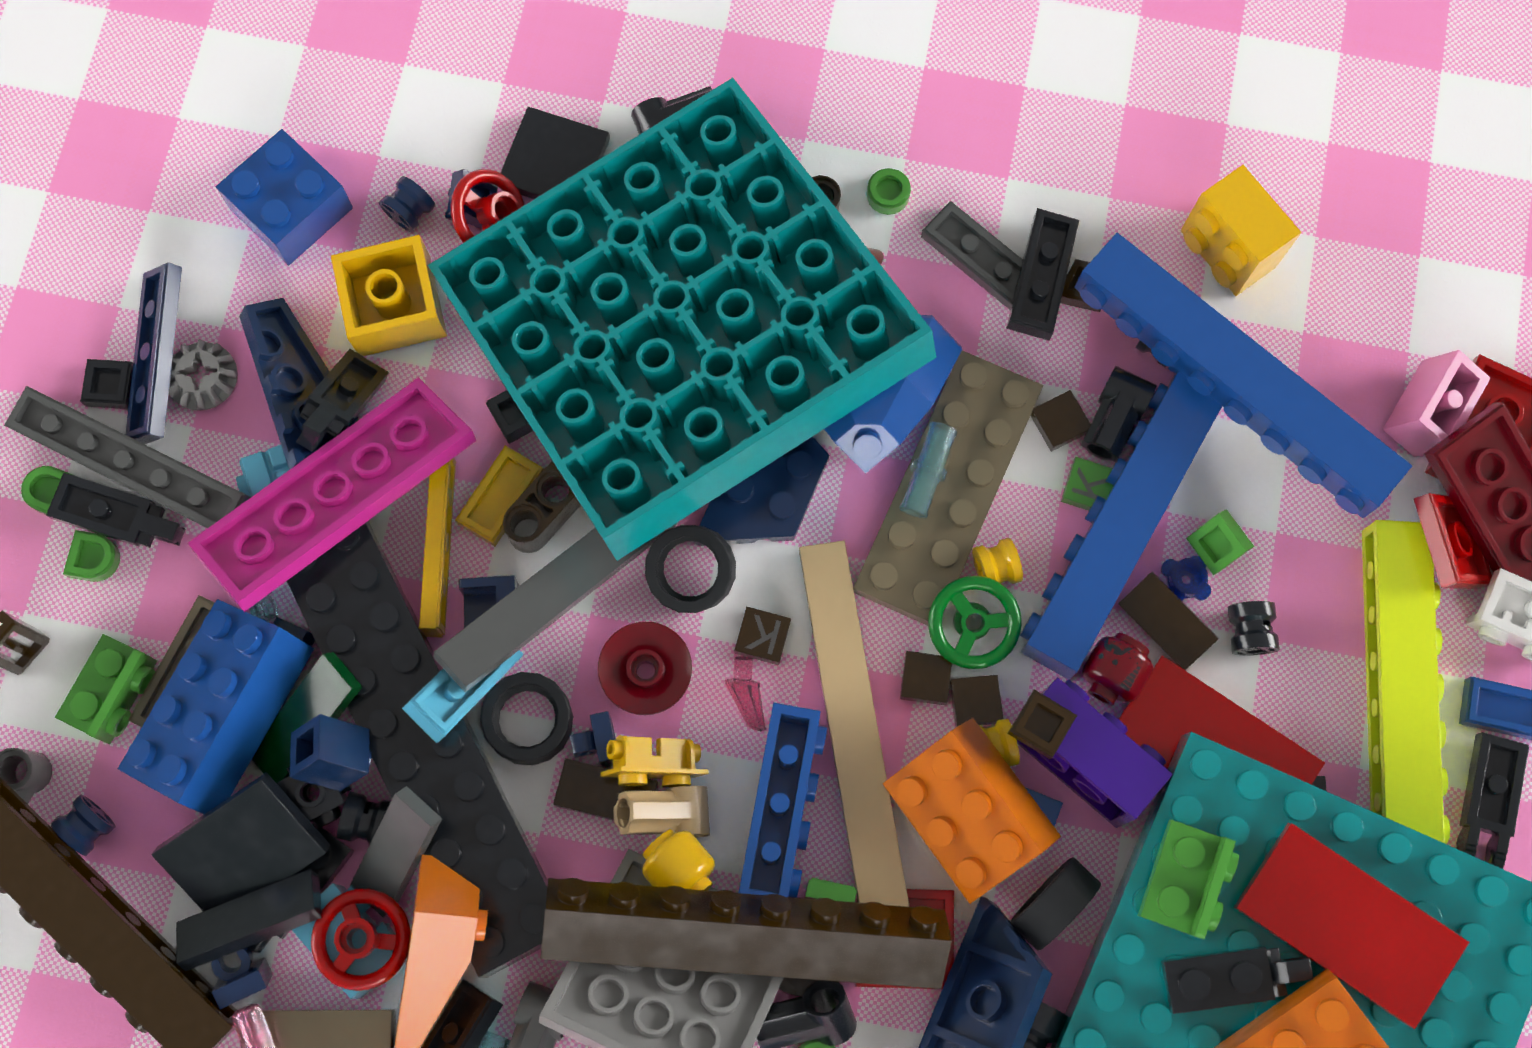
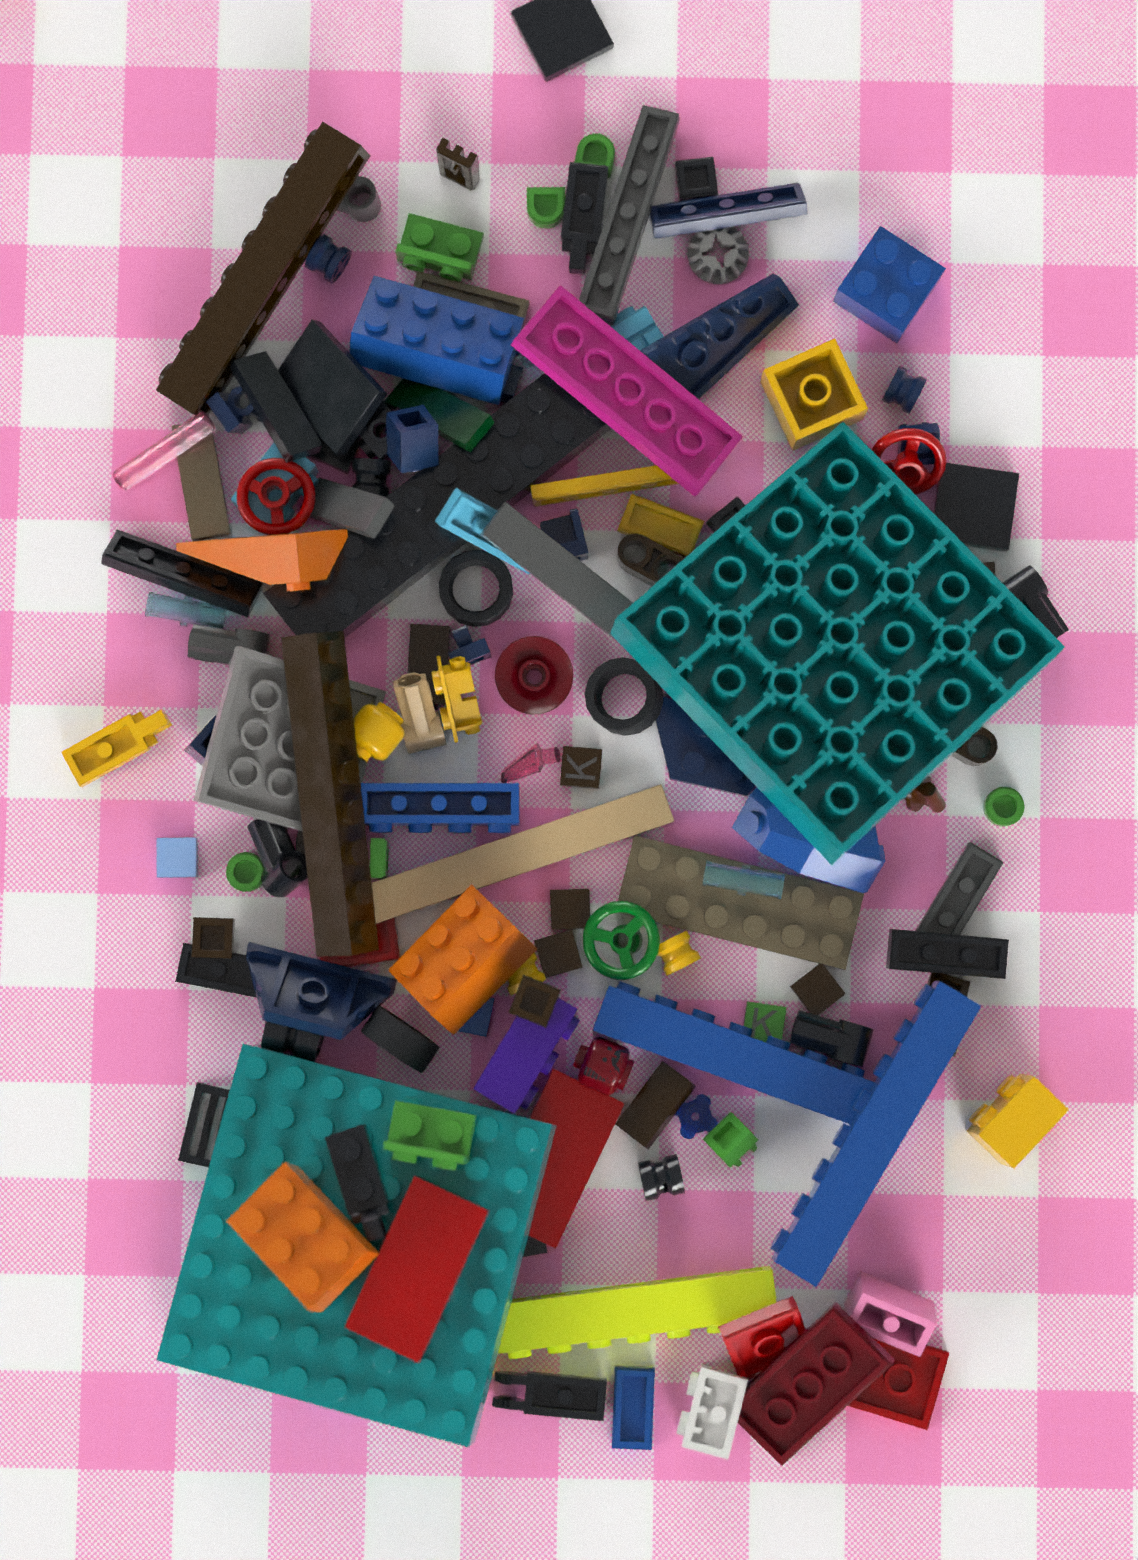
camera: 80 degrees right, 10 degrees up
(340, 398) = (714, 376): black hinge -> none

